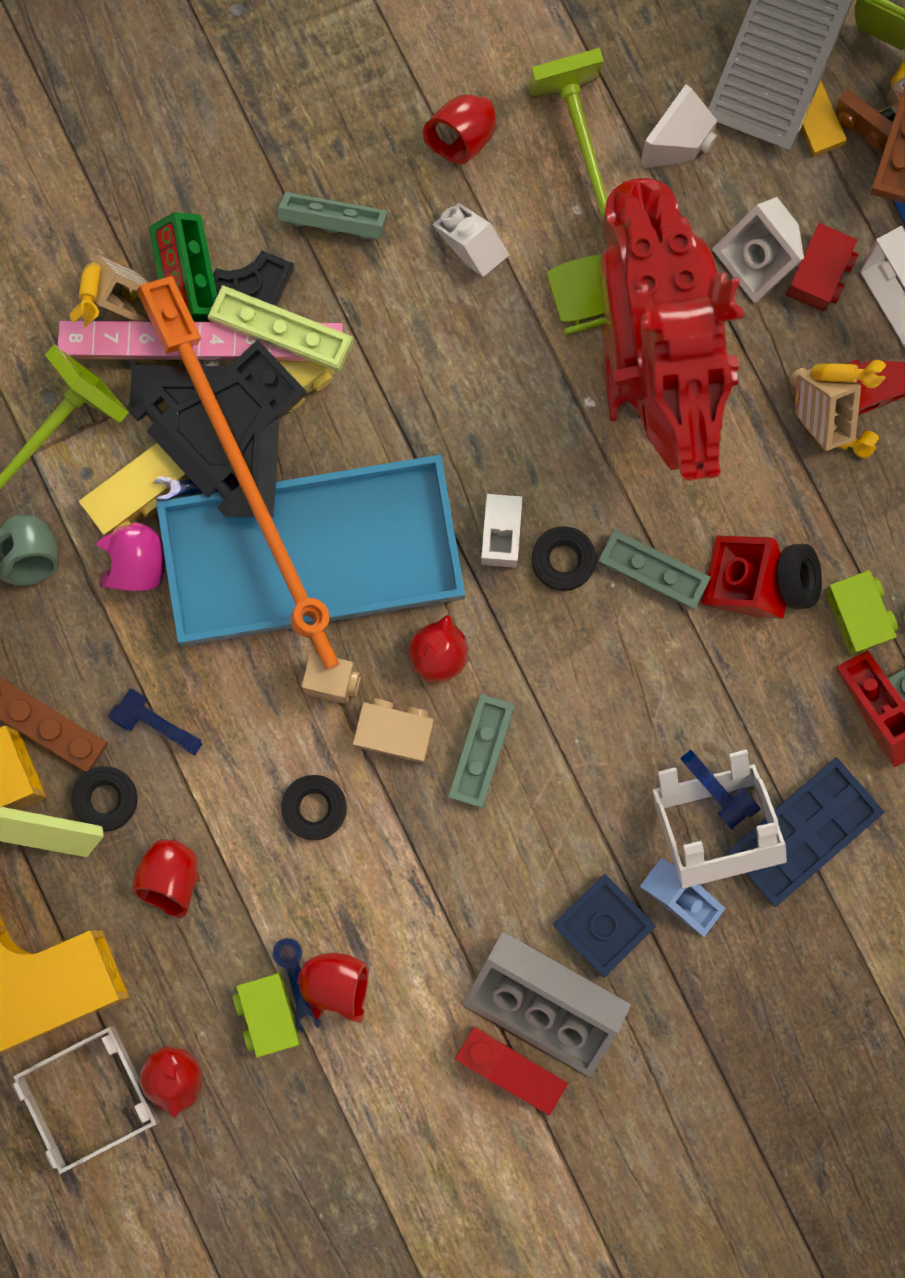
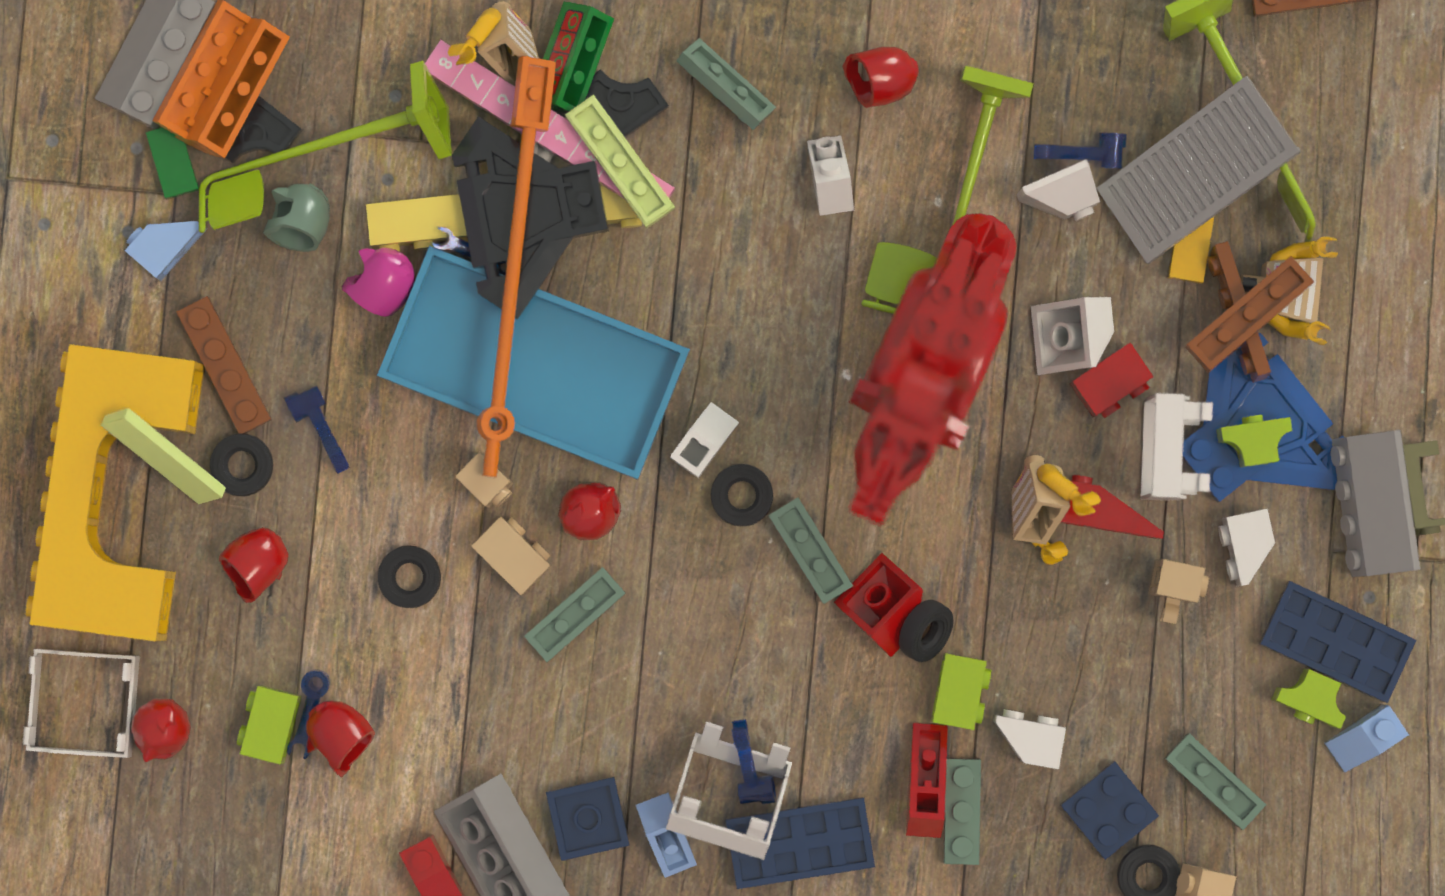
camera: 25 degrees right, 5 degrees up
(695, 76) = (1108, 152): none -> clear blue brick

